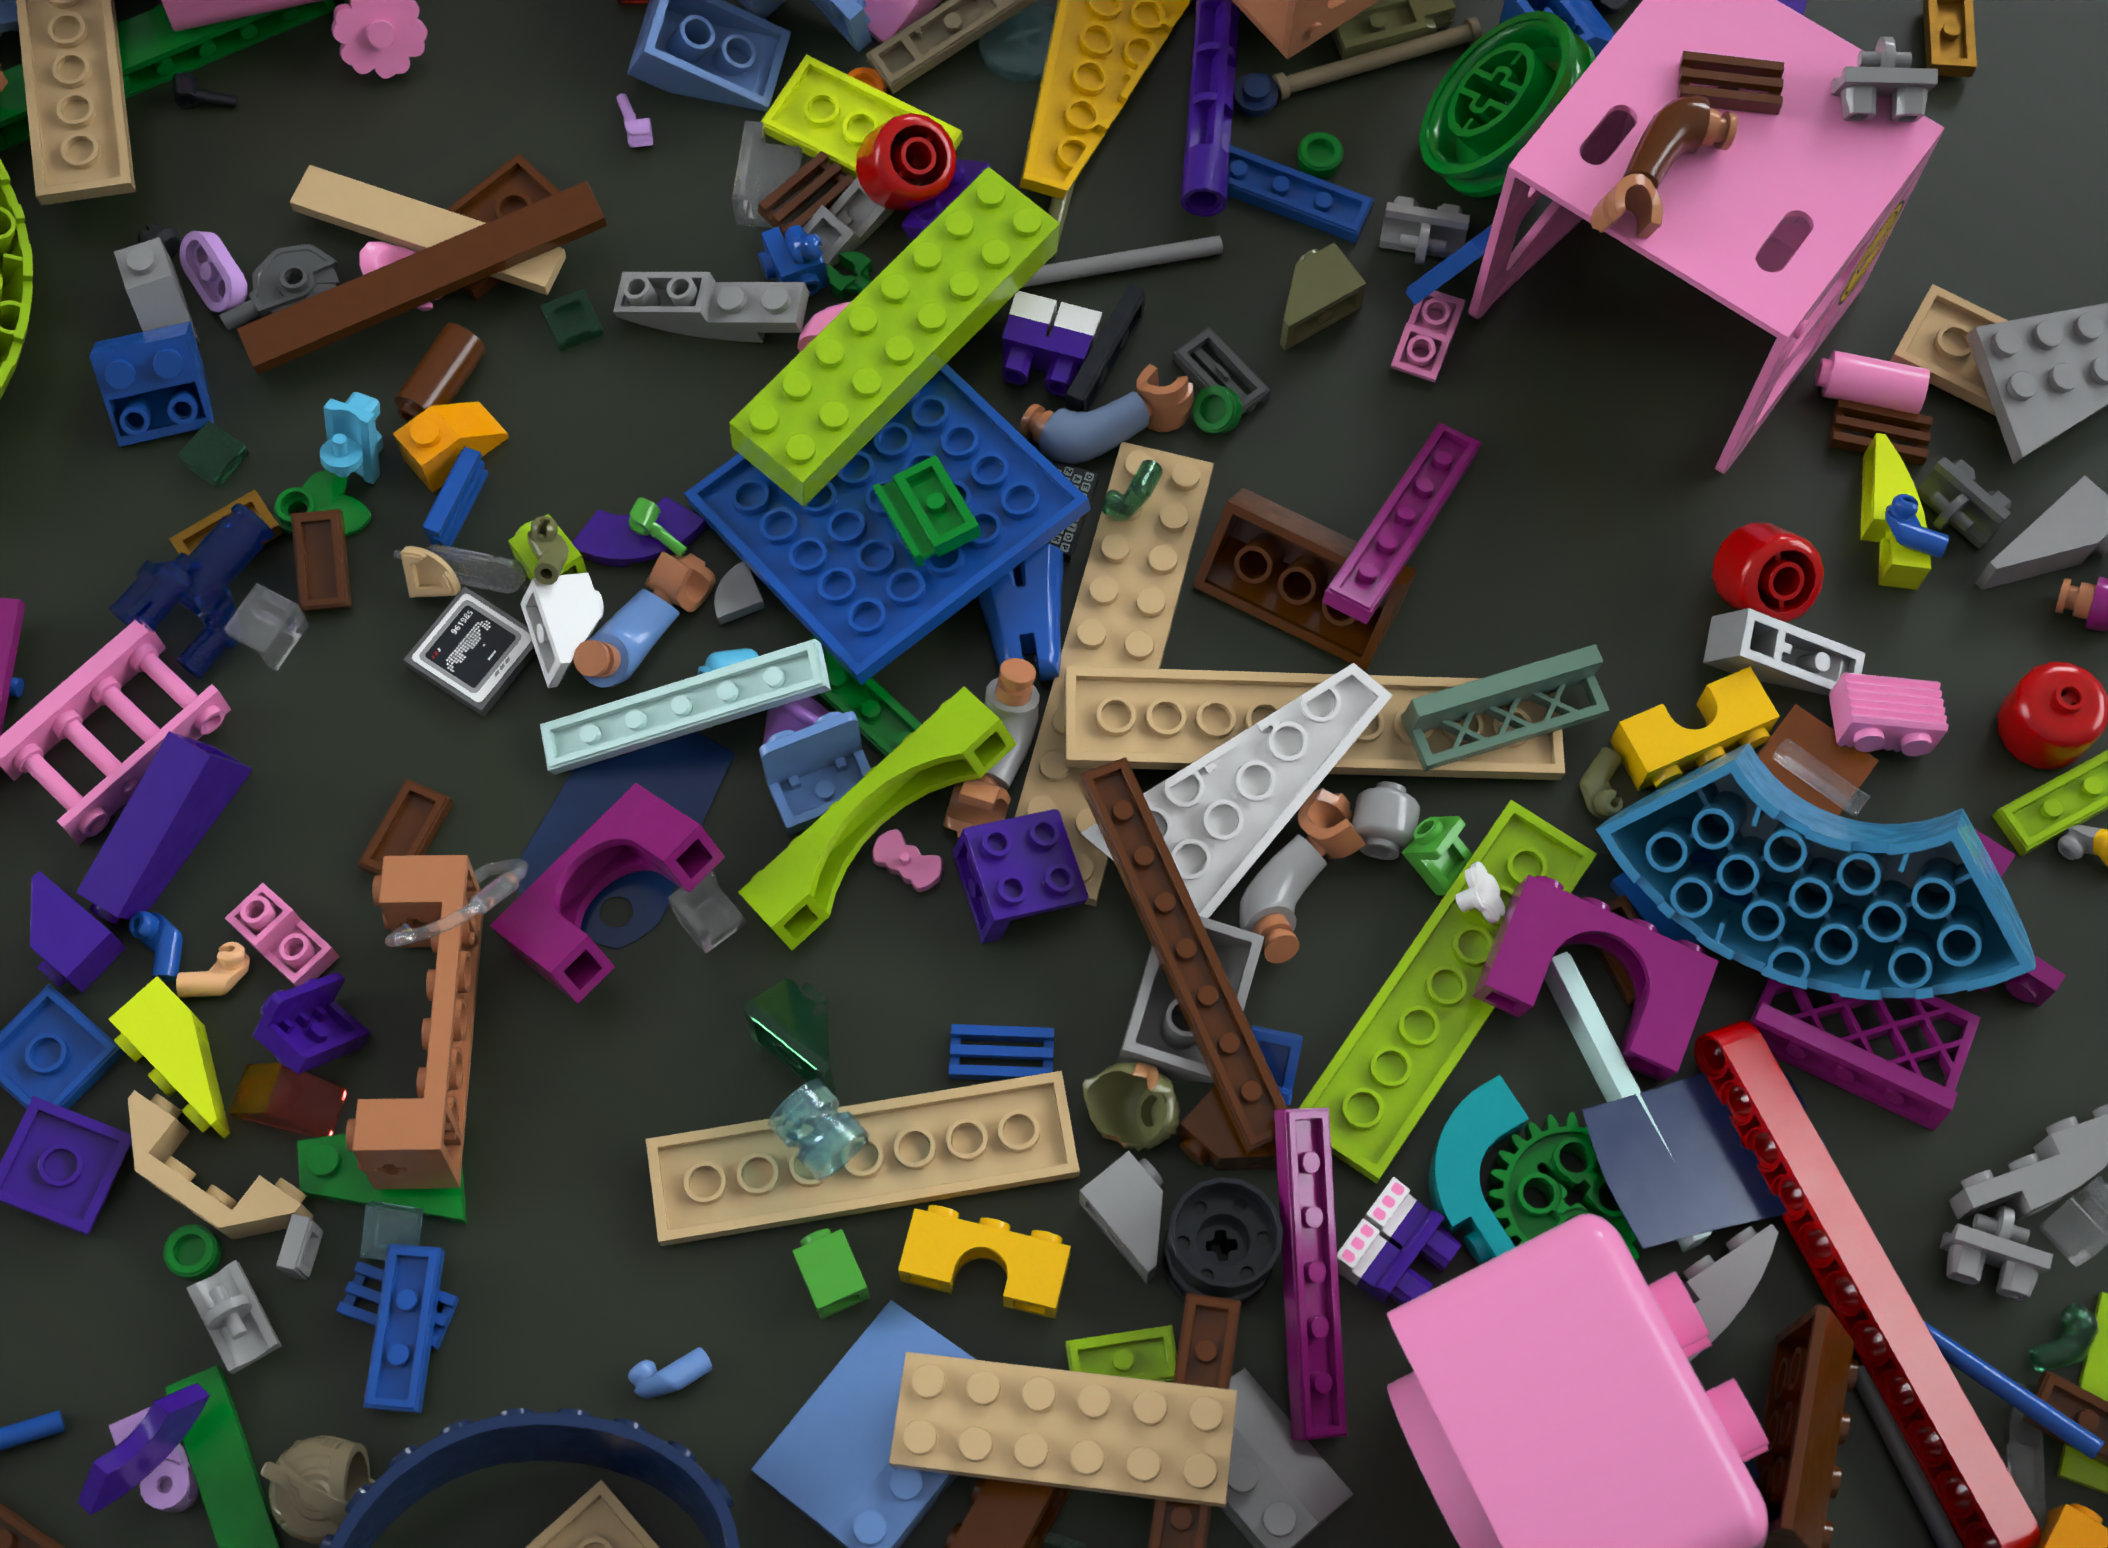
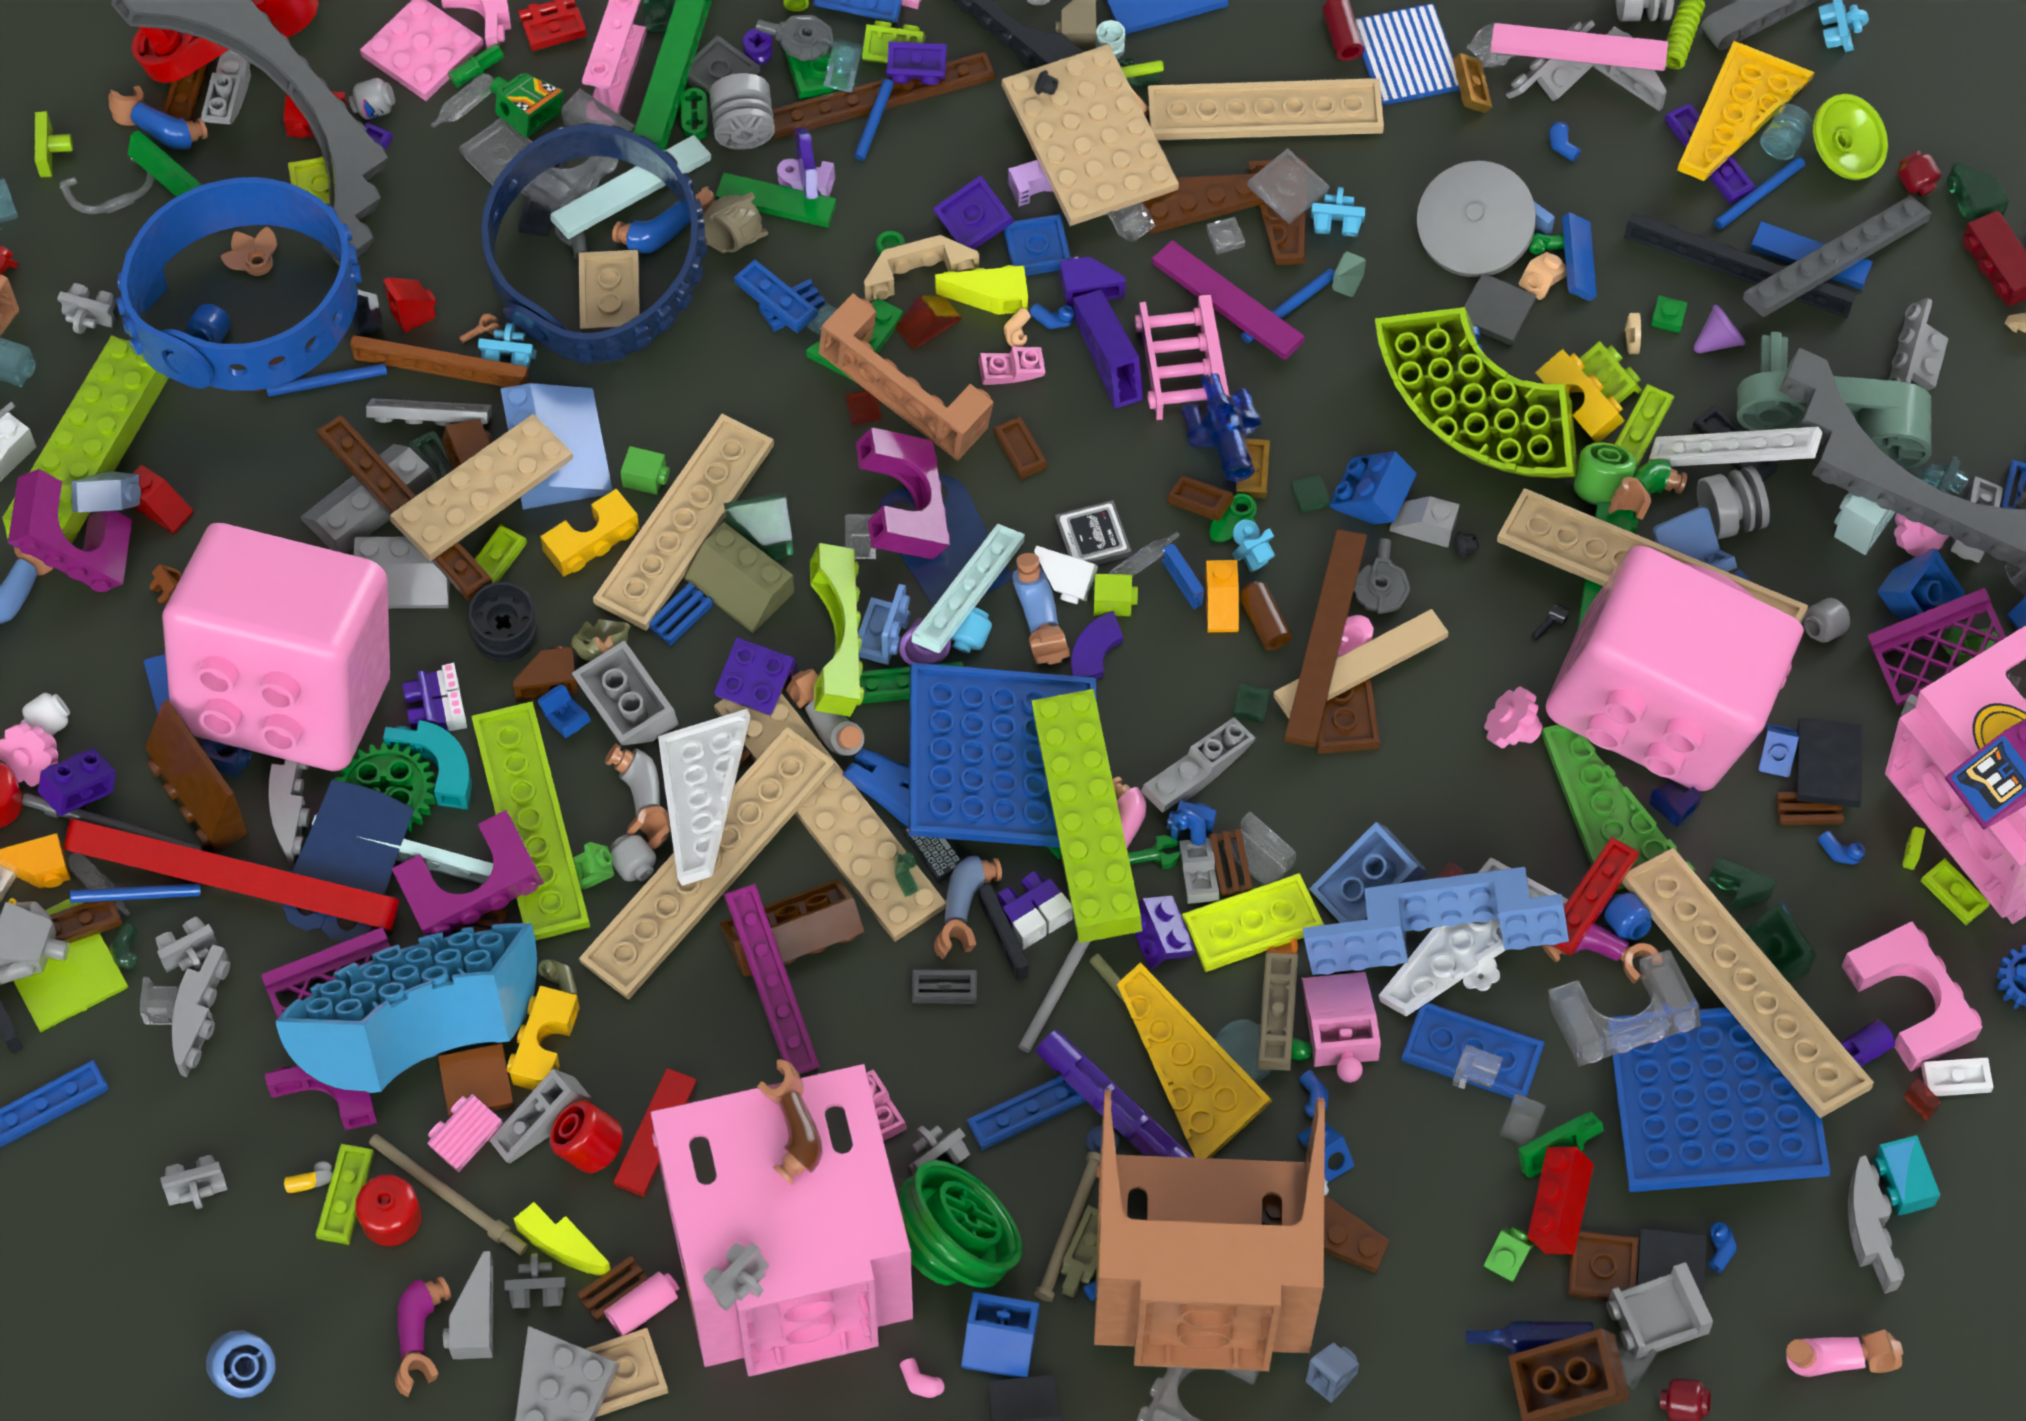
camera: 130 degrees right, 5 degrees down
(212, 271) = (1432, 555): lavender plate -> none
(234, 1317) = (840, 237): light grey hips -> none
(268, 625) = (1182, 452): clear panel -> none
(299, 1247) = (850, 280): light grey tile -> none
(308, 1026) = (945, 339): dark purple bracket -> none
(428, 574) = (1150, 537): tan tile -> none
(496, 1077) = (863, 408): none -> clear red tile
(513, 872) = (935, 434): clear piece -> none
(548, 548) = (1104, 582): olive arm -> none
(638, 130) = (1349, 809): lavender hand -> none
(643, 519) = (1093, 646): bright green hand -> none
(672, 1378) = (658, 382): medium blue arm -> none
(737, 595) = (1020, 662): light grey tile -> none
(815, 1126) = (705, 496): clear light blue wheel -> none
(892, 1013) = (739, 578): none -> olive slope
(903, 155) = (1195, 903): red head -> none
(906, 860) = (811, 643): bright pink piece -> none
(927, 510) = (970, 752): green plate -> none
(1128, 1209) = (558, 605): light grey slope -> none
(1184, 952) = (643, 698): reddish brown tile -> none
(1217, 409) = (923, 962): green tile -> none
(1310, 1274) = (458, 646): magenta tile -> none
(1320, 155) = (1035, 1146): green tile -> none
(1320, 294) = (946, 1066): olive slope -> none
(1449, 267) = (894, 1129): blue tile -> none
(1481, 894) = (552, 859): white plant -> none
(1501, 690) = (638, 952): sand green fence -> none
(1670, 531) = (642, 1157): none -> red tile
(1731, 75) = (832, 1189): reddish brown tile -> none
(1820, 777) = (463, 1066): clear tile -> none
(1908, 529) = (539, 1219): blue arm -> none
(1944, 600) = (496, 1230): none -> dark tan bar

